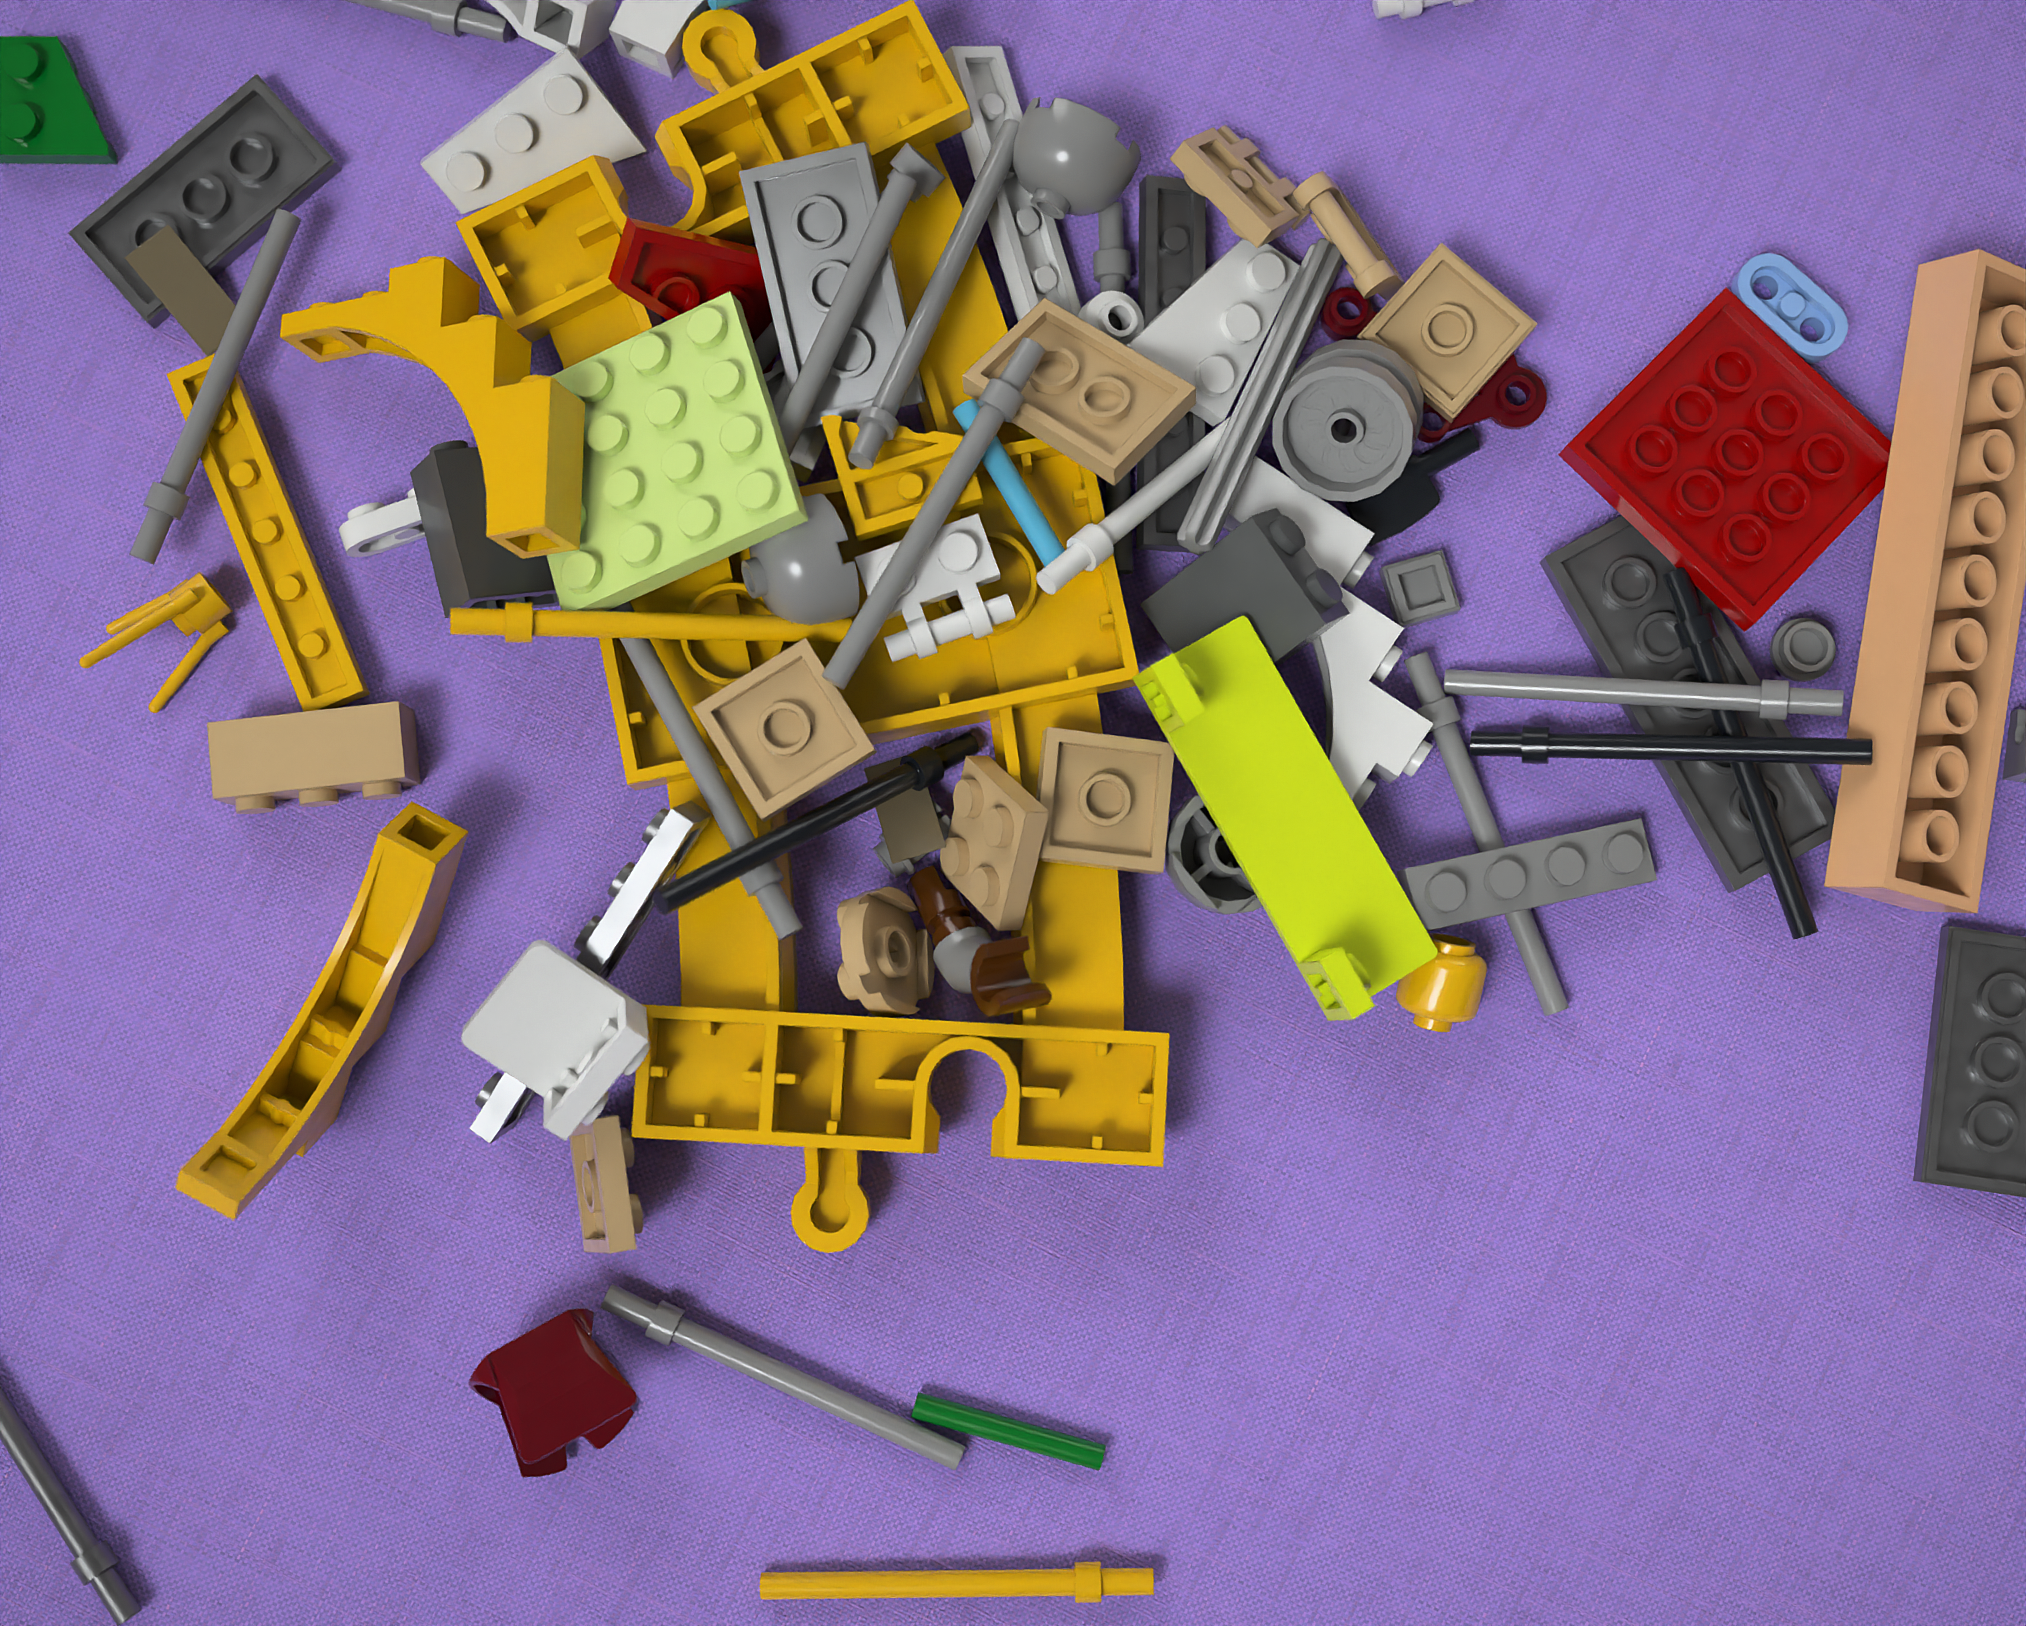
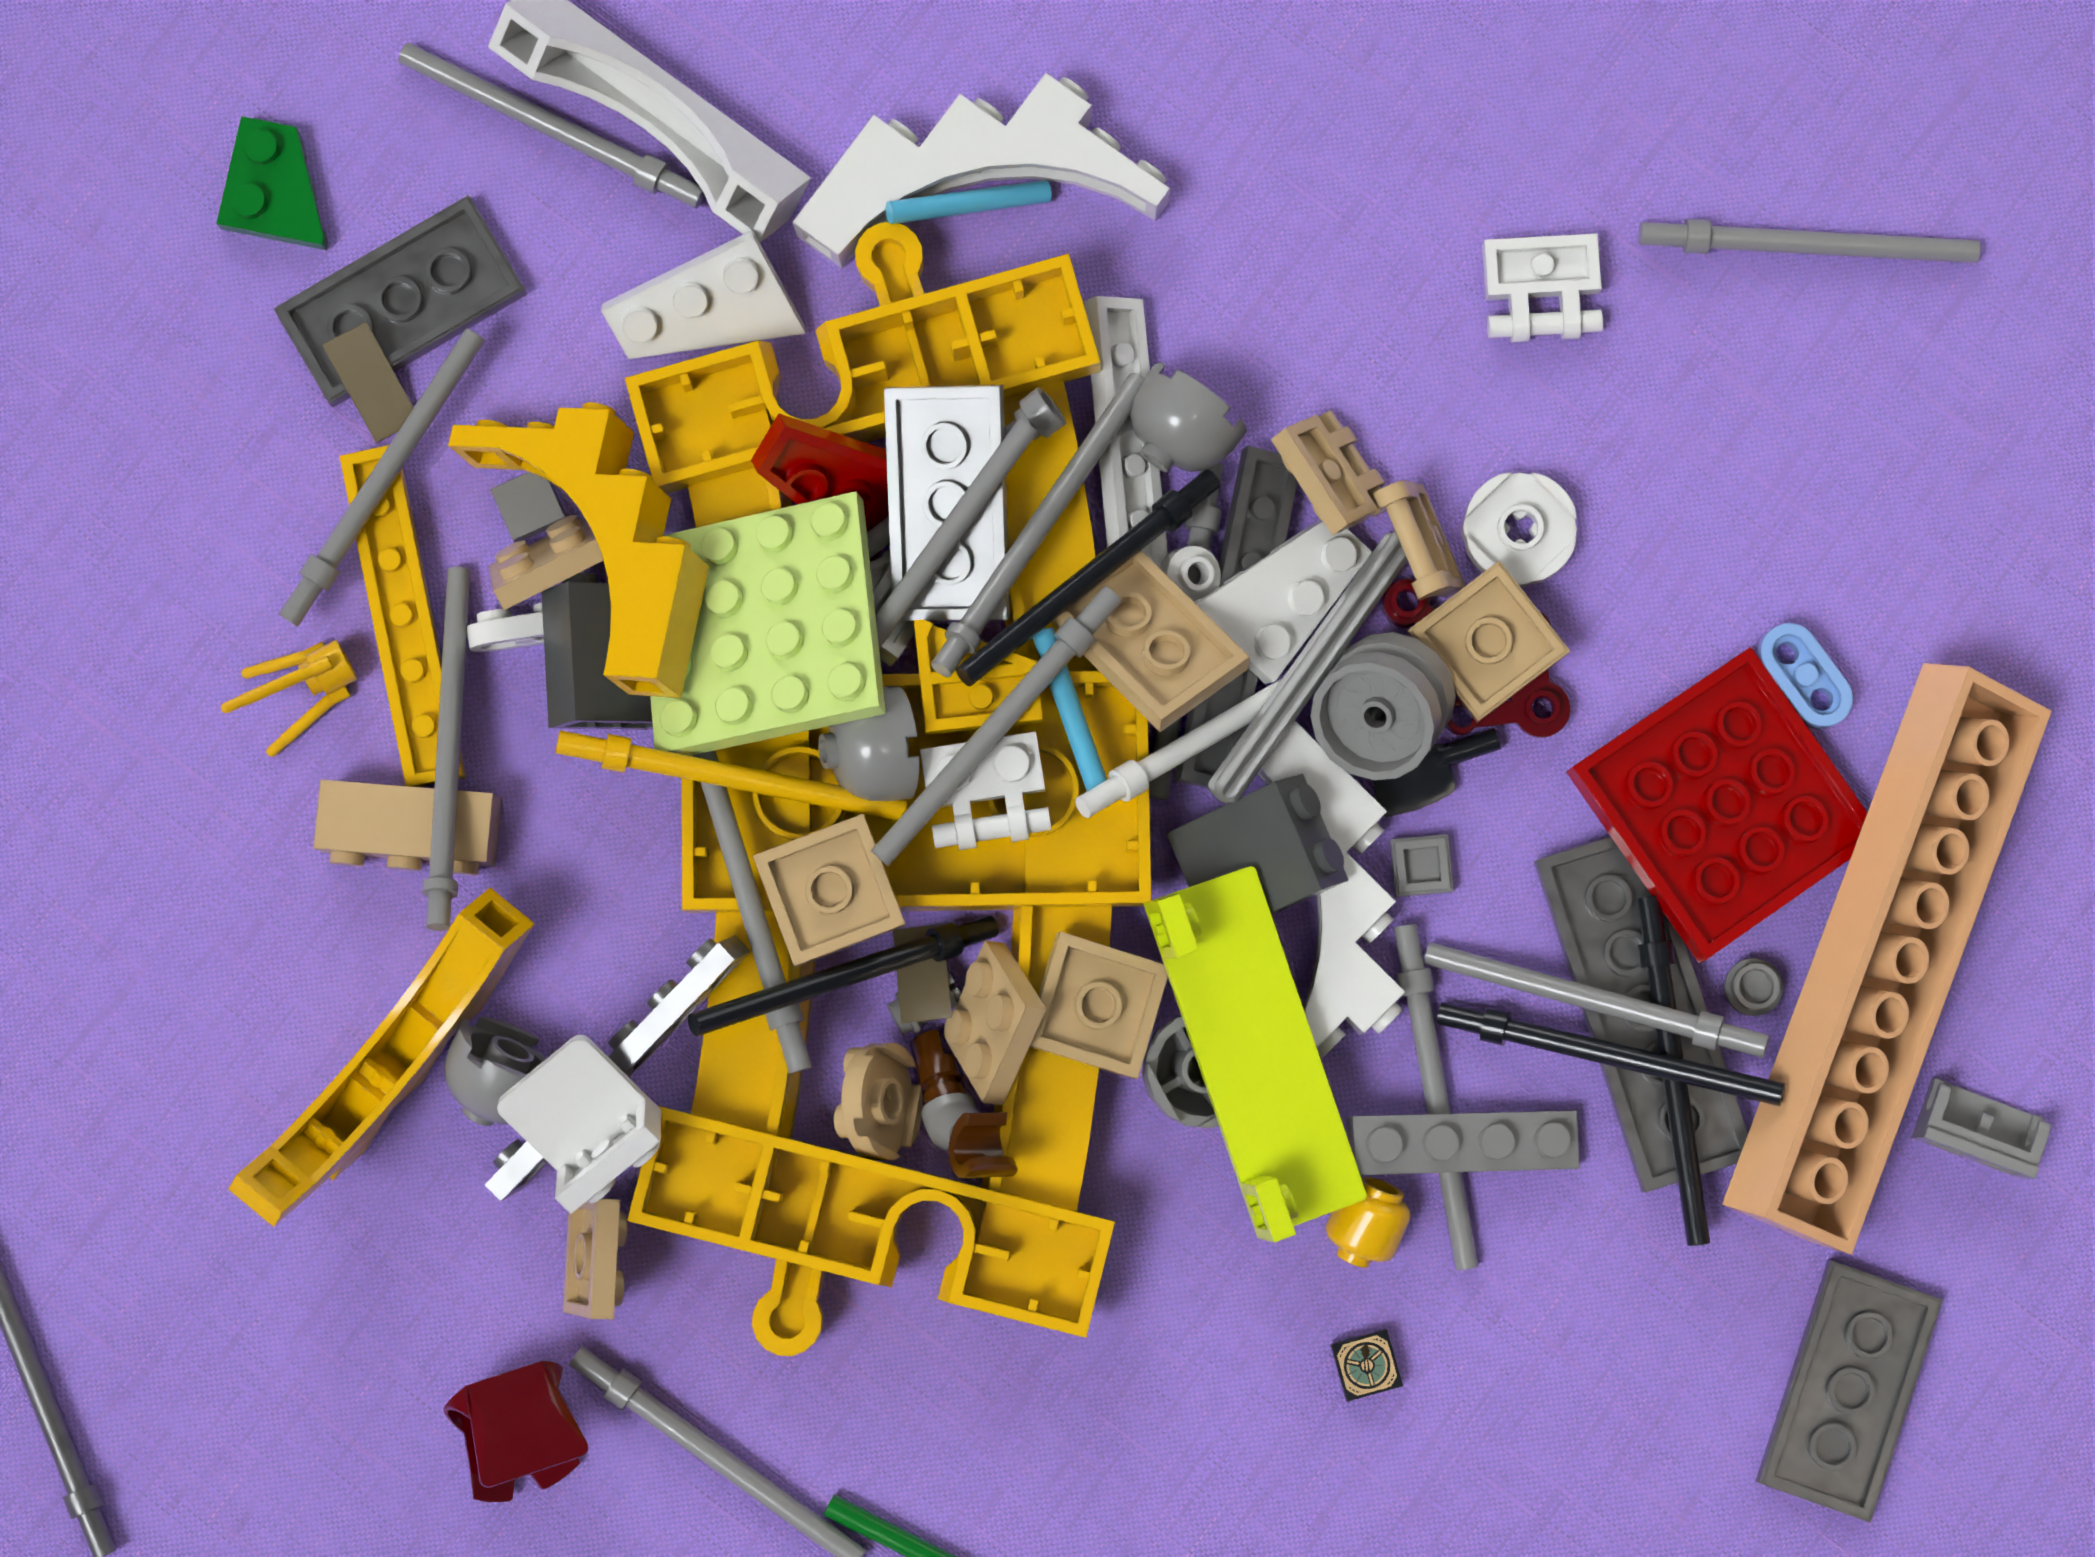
camera: 10 degrees right, 0 degrees up
(356, 808) = (440, 885): none -> light grey bar
(383, 391) = (527, 505): none -> light grey tile
(386, 454) = (532, 568): none -> tan plate
(444, 995) = (486, 1064): none -> light grey cylinder
(1073, 261) = (1167, 514): none -> black bar
(1443, 177) = (1520, 496): none -> white plate
(1469, 1137) = (1366, 1365): none -> tile

